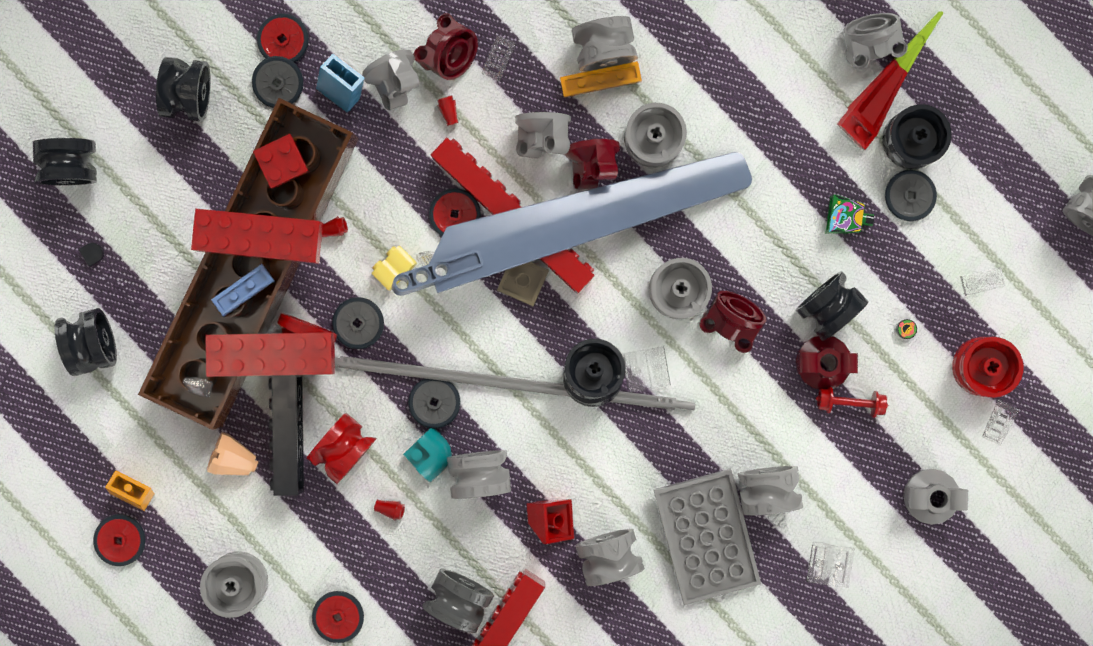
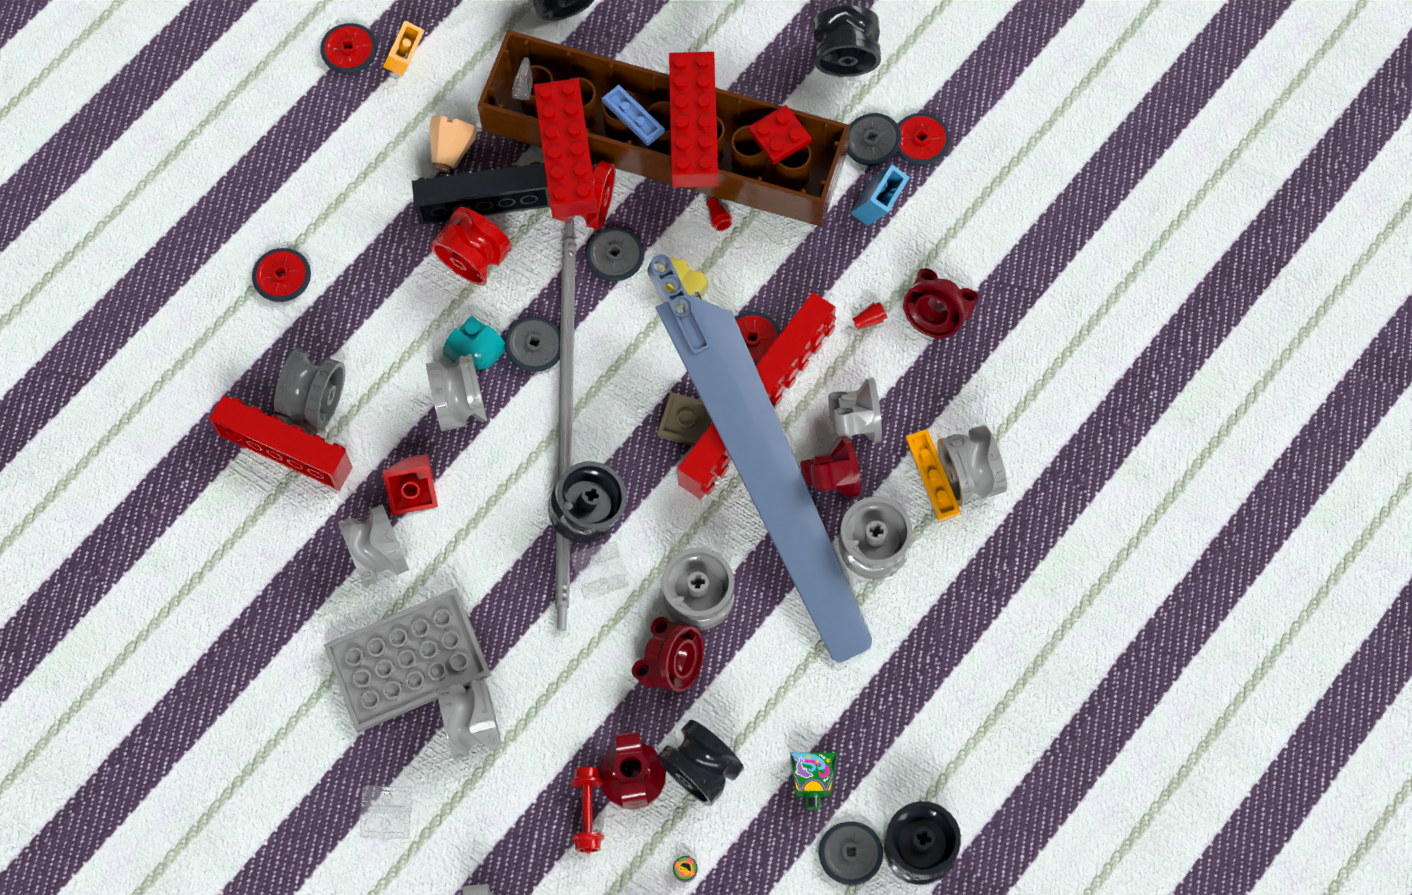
camera: 80 degrees right, 20 degrees down
(239, 598) = (310, 161): light grey piece -> none
(391, 509) = (407, 315): red cone -> none
(393, 77) = (897, 246): light grey piece -> none
(497, 76) = (945, 371): clear slope -> none
(870, 108) = (944, 783): red plate -> none
(873, 38) = (1034, 777): light grey piece -> none

